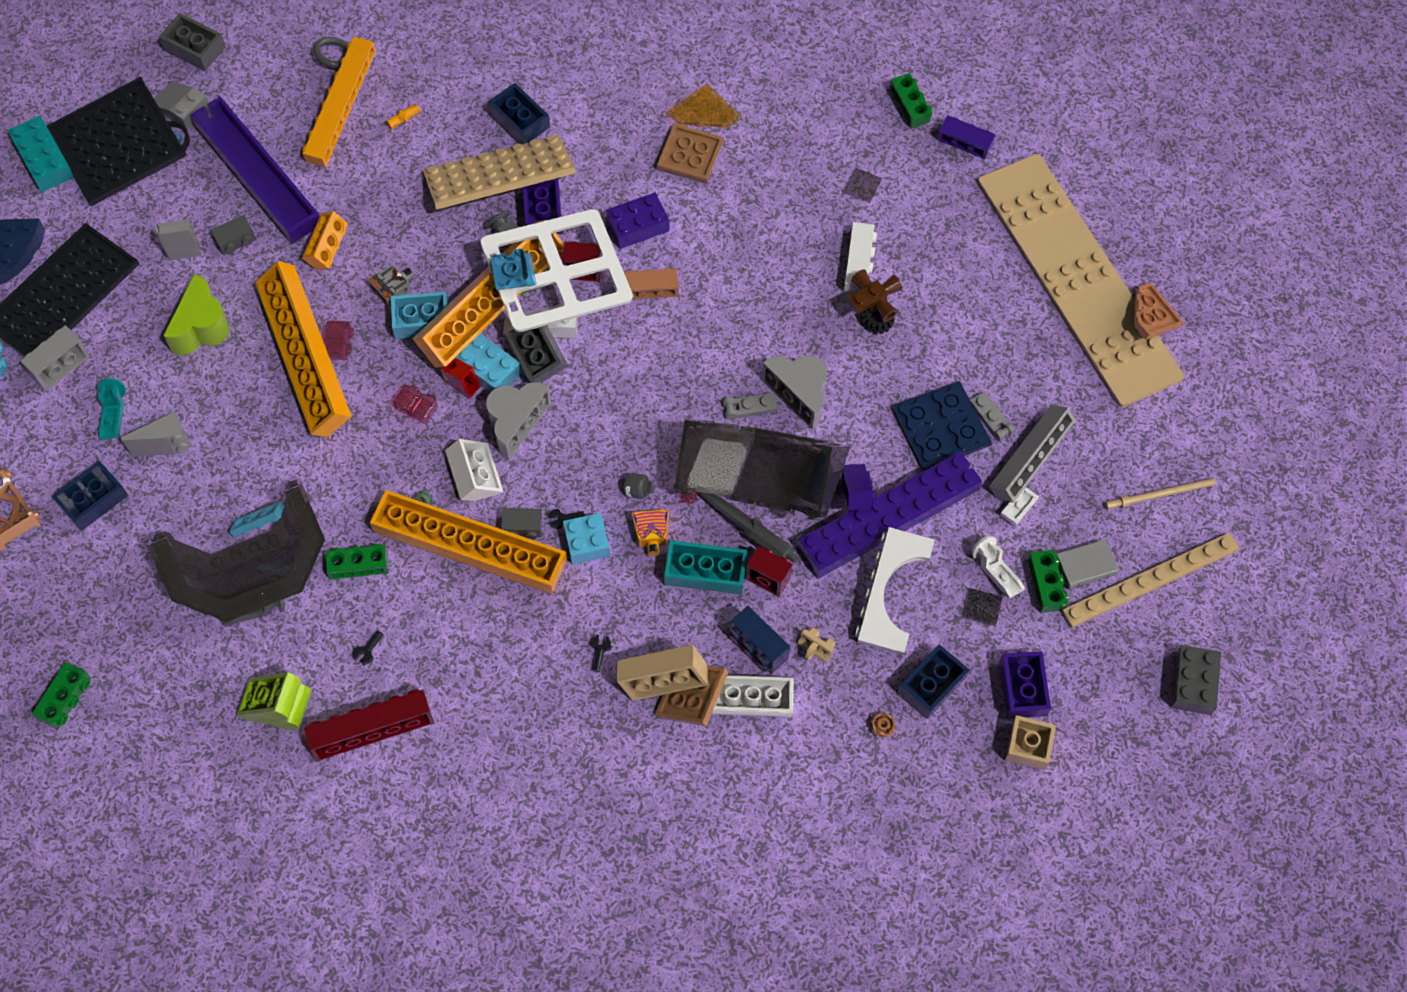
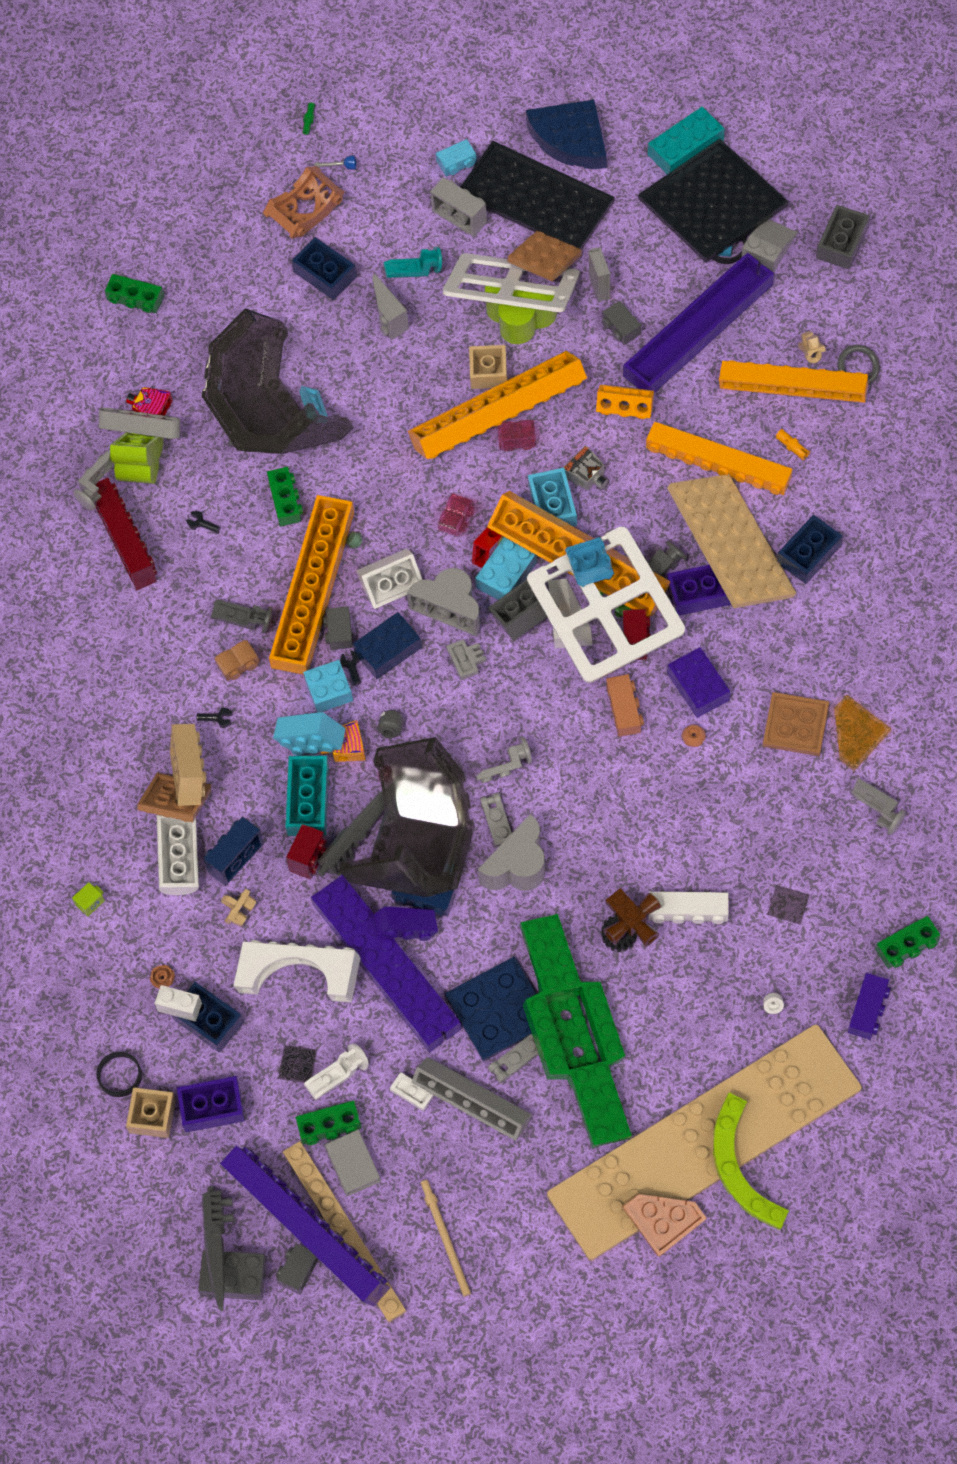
camera: 90 degrees right, 0 degrees up
(138, 289) = (544, 256): none -> medium nougat plate
(168, 315) = (508, 285): none -> white window
(211, 689) = (150, 401): none -> torso
(235, 698) = (139, 423): none -> light grey beam
(254, 354) = (487, 366): none -> tan brick
(298, 86) = (809, 345): none -> tan hips
(319, 744) = (87, 483): none -> light grey piece
(404, 175) = (718, 458): none -> light orange brick
(493, 607) = (242, 615): none -> dark grey piece
(540, 624) = (237, 660): none -> medium nougat brick
(550, 479) = (387, 645): none -> dark blue brick
(576, 413) = (465, 658): none -> light grey hinge
(645, 552) = (309, 733): none -> medium azure brick
(684, 237) = (693, 741): none -> nougat plate
(689, 378) = (515, 754): none -> light grey piece
(783, 95) = (880, 802): none -> light grey piece
(790, 791) = (88, 899): none -> lime brick
(928, 698) = (178, 1003): none -> white brick
(956, 206) = (773, 1003): none -> white tile
(975, 377) = (557, 1037): none -> green piece
(986, 755) = (109, 1057): none -> black tyre
(1104, 257) = (730, 1172): none -> lime plate
(1154, 604) = (305, 1226): none -> dark purple piece
(1170, 686) = (213, 1228): none -> dark grey piece
(1189, 621) = (297, 1268): none -> dark grey brick

